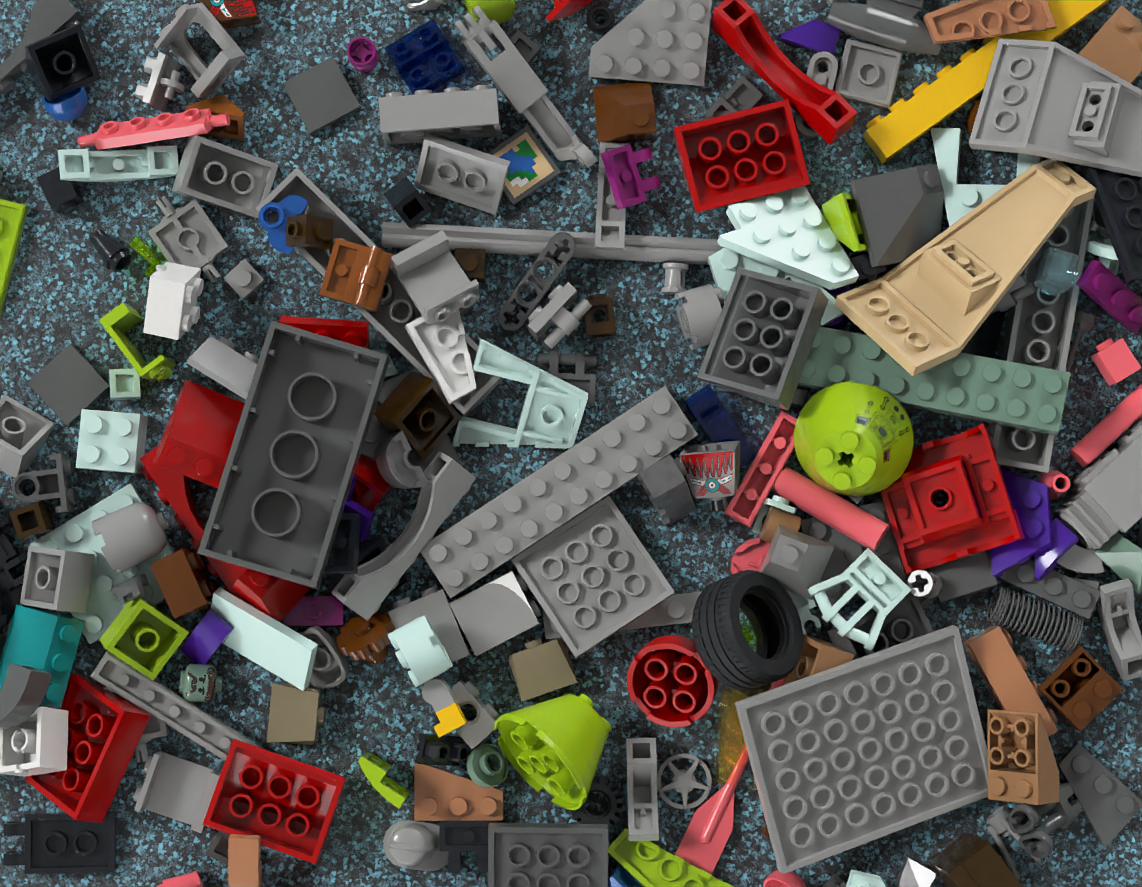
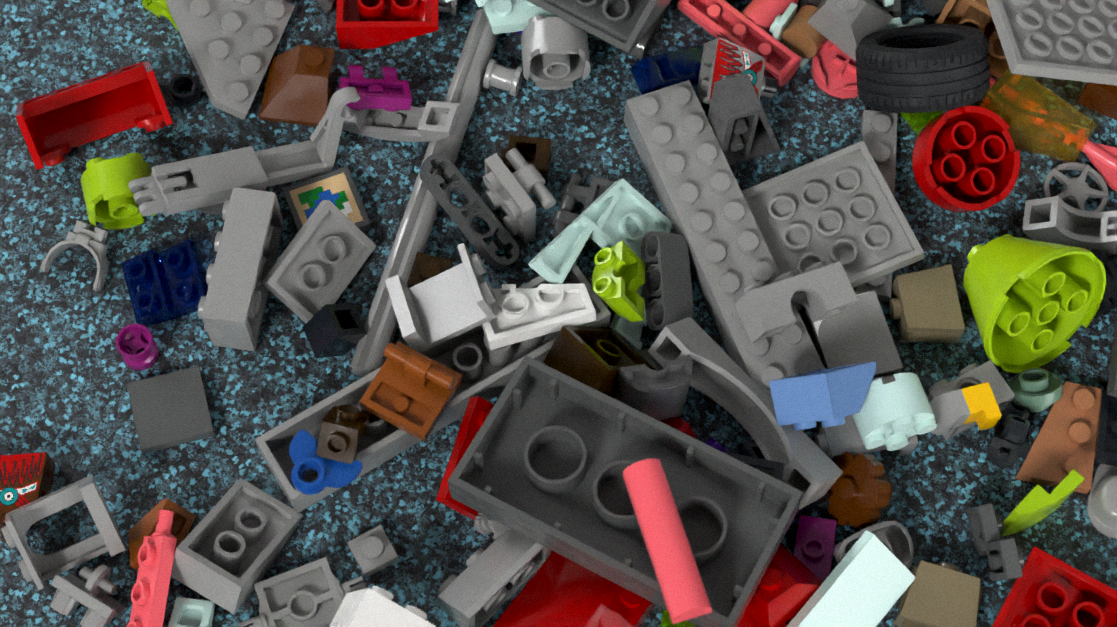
camera: 90 degrees left, 20 degrees down
(251, 493) = (666, 540): none -> coral brick
(331, 757) = (1003, 555): none -> dark grey plate
(418, 592) = (821, 395): none -> medium blue slope
(487, 537) = (821, 290): none -> light grey arch
(495, 413) = (617, 279): none -> lime cylinder
(511, 454) = (666, 279): none -> dark grey beam

